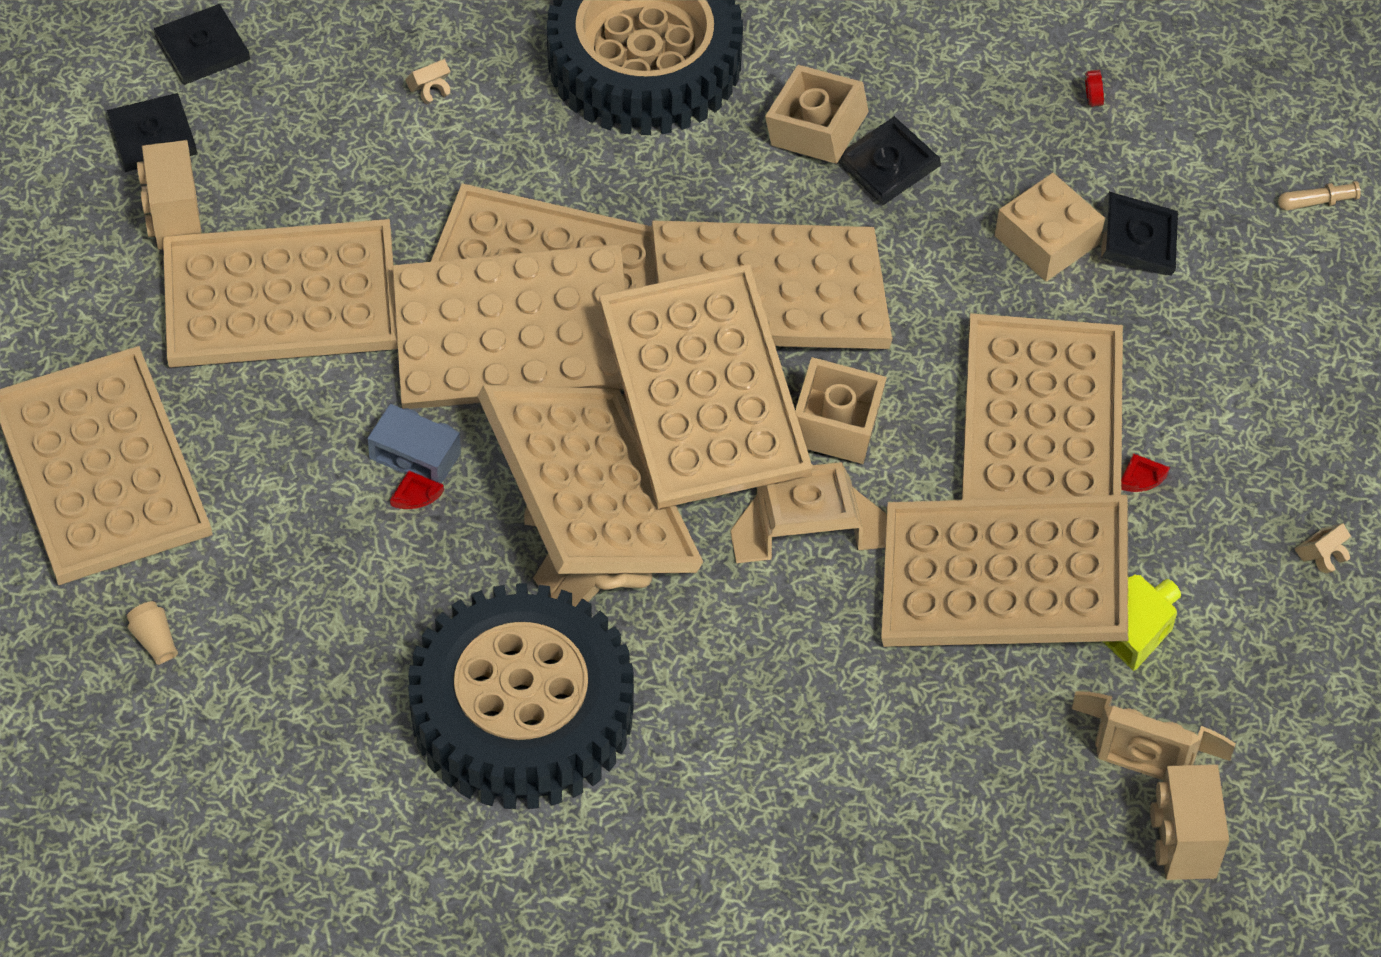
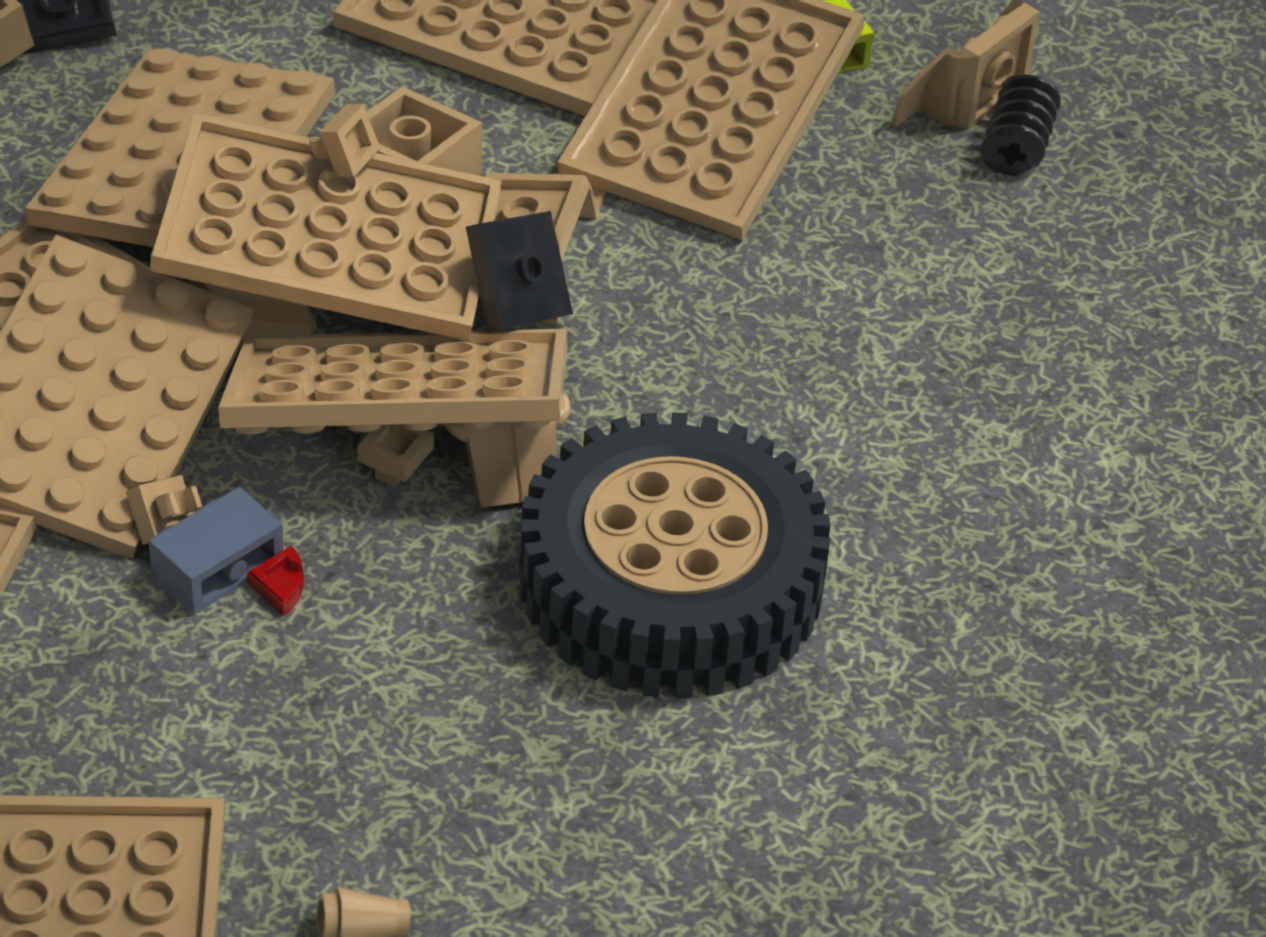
camera: 70 degrees left, 10 degrees down
(433, 401) = (161, 505): none -> tan tile
(729, 510) = (519, 270): none -> black plate
(767, 358) = (346, 141): none -> tan tile
(1103, 785) = (1020, 124): none -> black piece
(1190, 822) = (1106, 65): tan brick -> none

